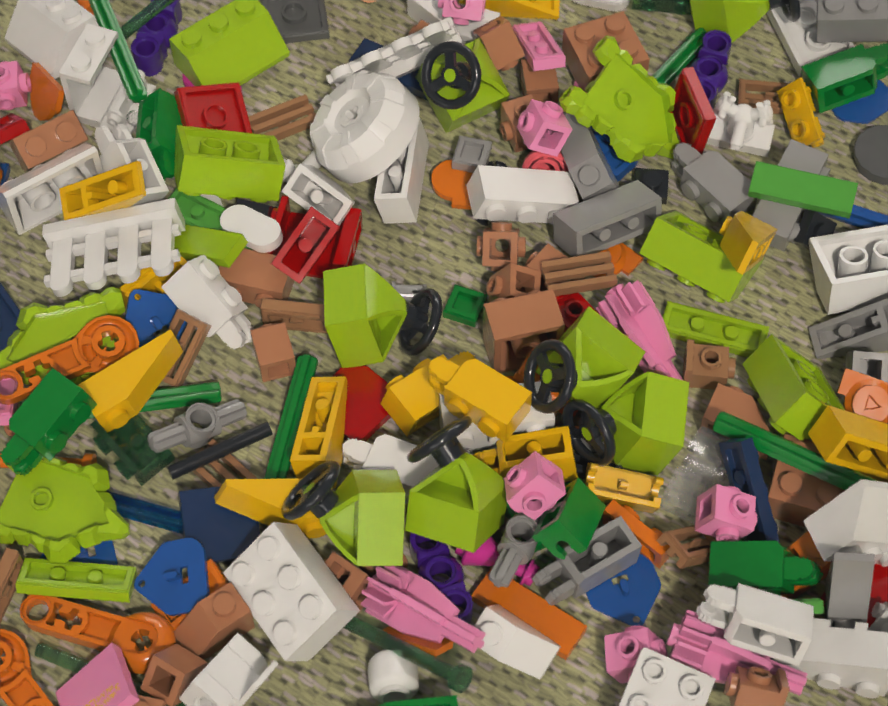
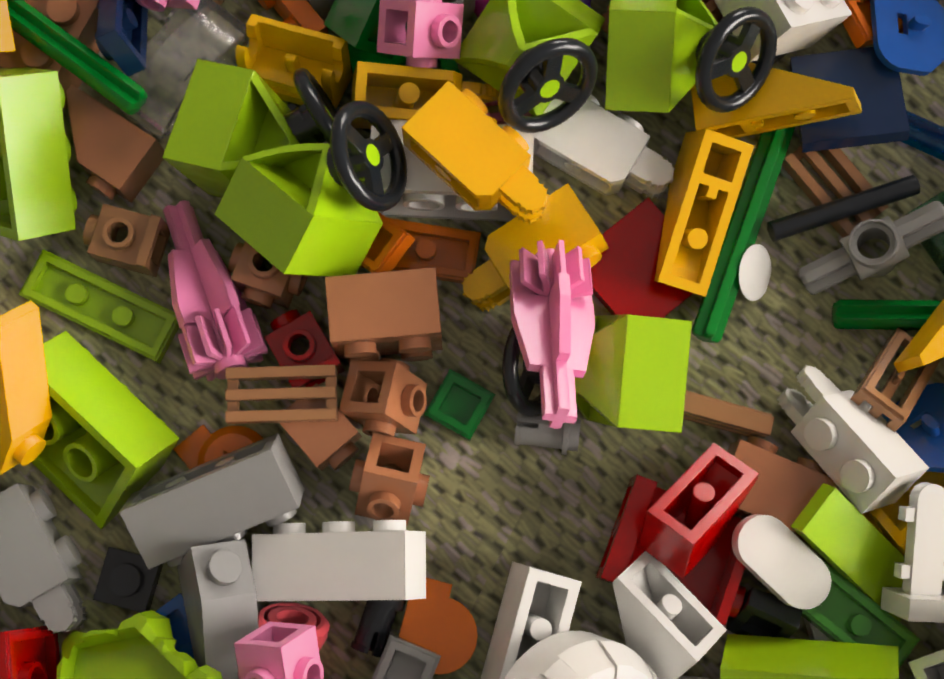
camera: 175 degrees left, 20 degrees up
(273, 351) = (756, 359): nougat brick -> none
(277, 405) = (754, 272): none -> white sticker
(413, 309) = (553, 323): none -> bright pink piece

